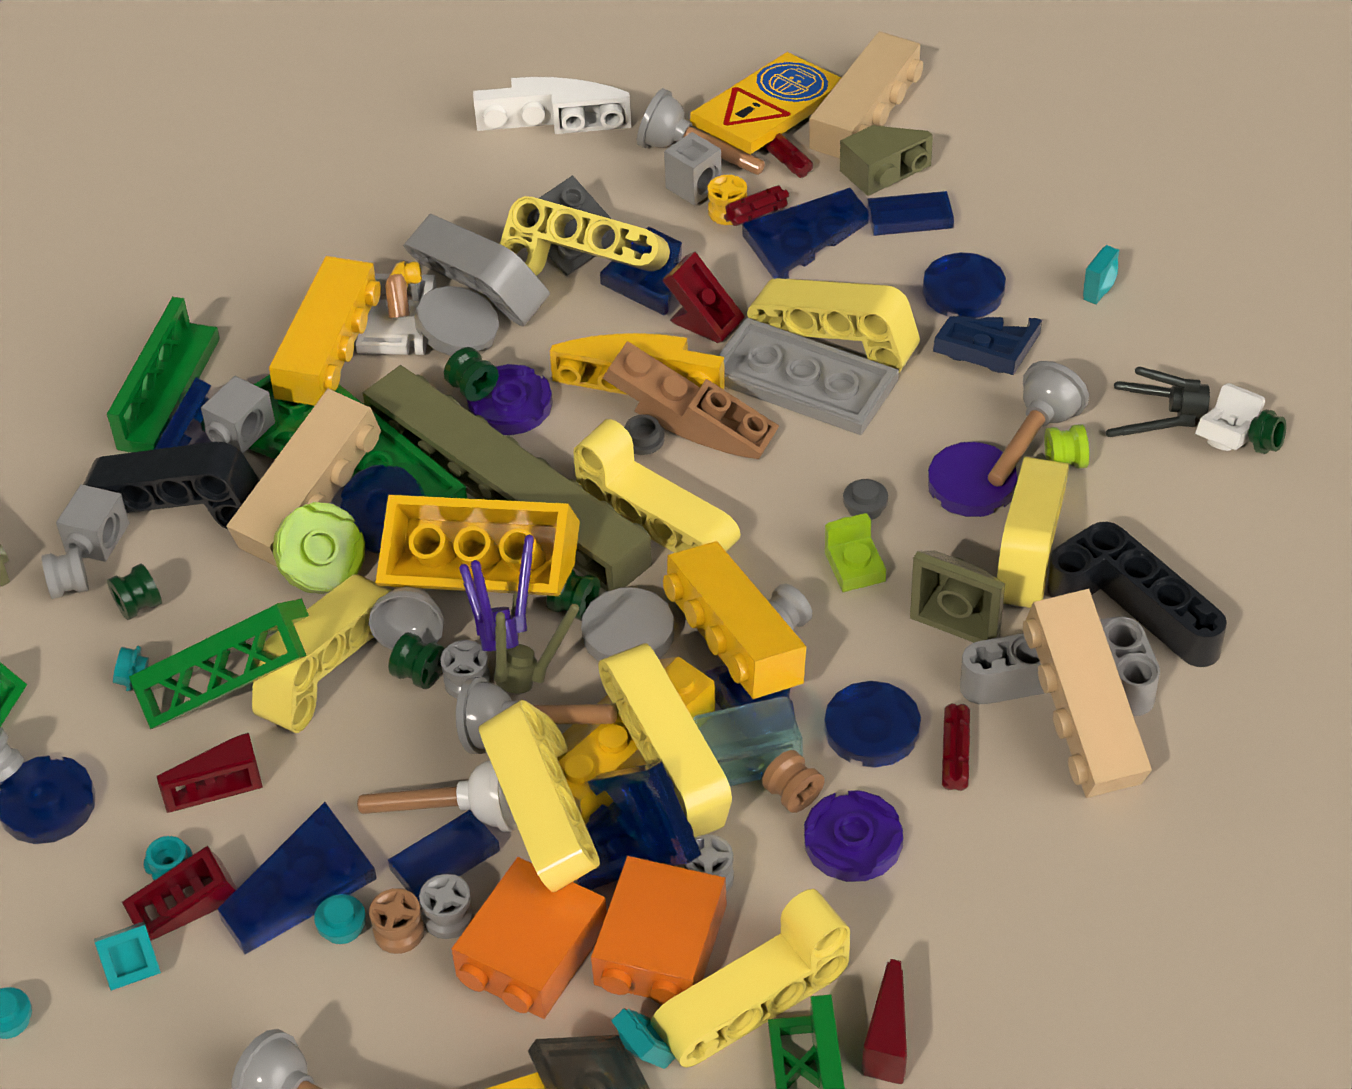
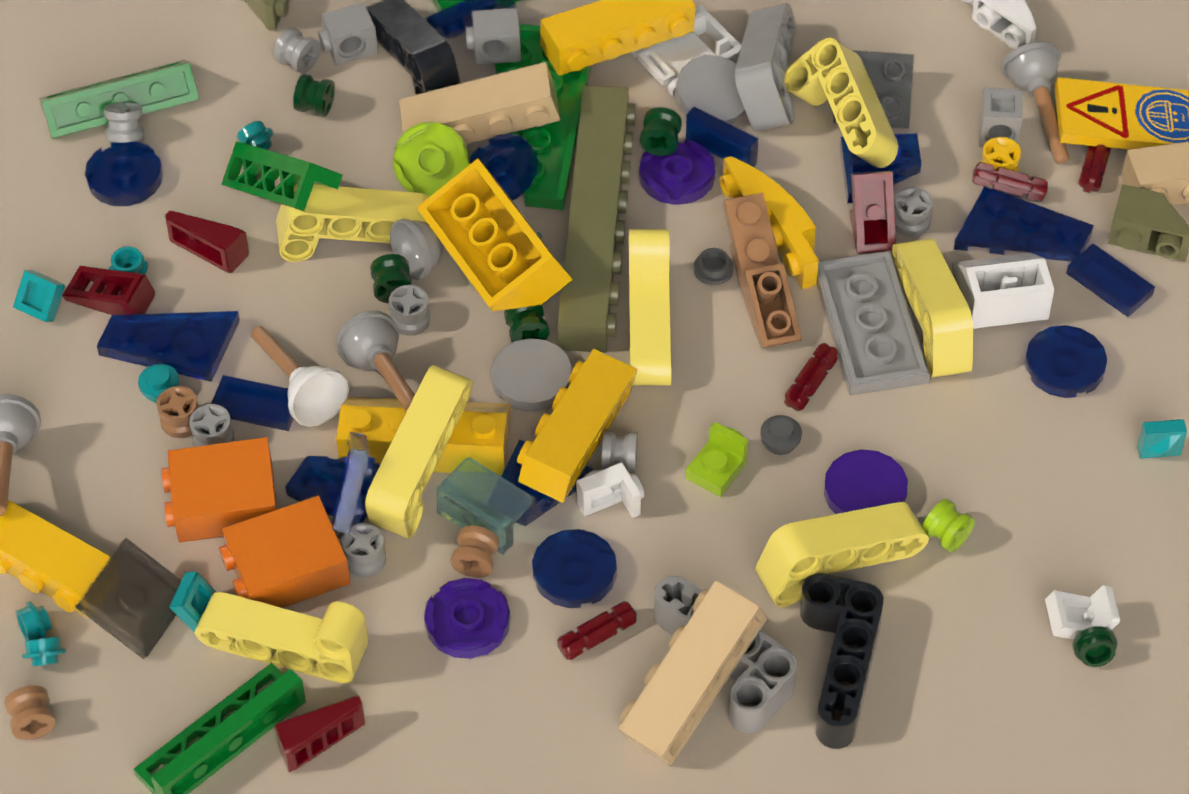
camera: 50 degrees right, 5 degrees up
(397, 285) = (704, 33): medium nougat arm -> none
(479, 601) = (439, 297): dark purple plant -> none
(517, 344) = (721, 137): none -> clear blue tile
(517, 666) = (433, 335): olive plant -> none
(524, 756) = (297, 419): light yellow beam -> none
(728, 272) = (911, 201): none -> light grey wheel
(822, 634) = (609, 487): none -> white bracket
(824, 444) = (811, 377): none -> dark red axle
(868, 256) = (1005, 289): none -> white slope
(956, 596) = (728, 535): olive slope -> none
(987, 342) = (1015, 412): dark blue wing -> none
(1051, 396) = (979, 483): light grey piece -> none
(1185, 397) = (1079, 571): pearl dark grey plant -> none

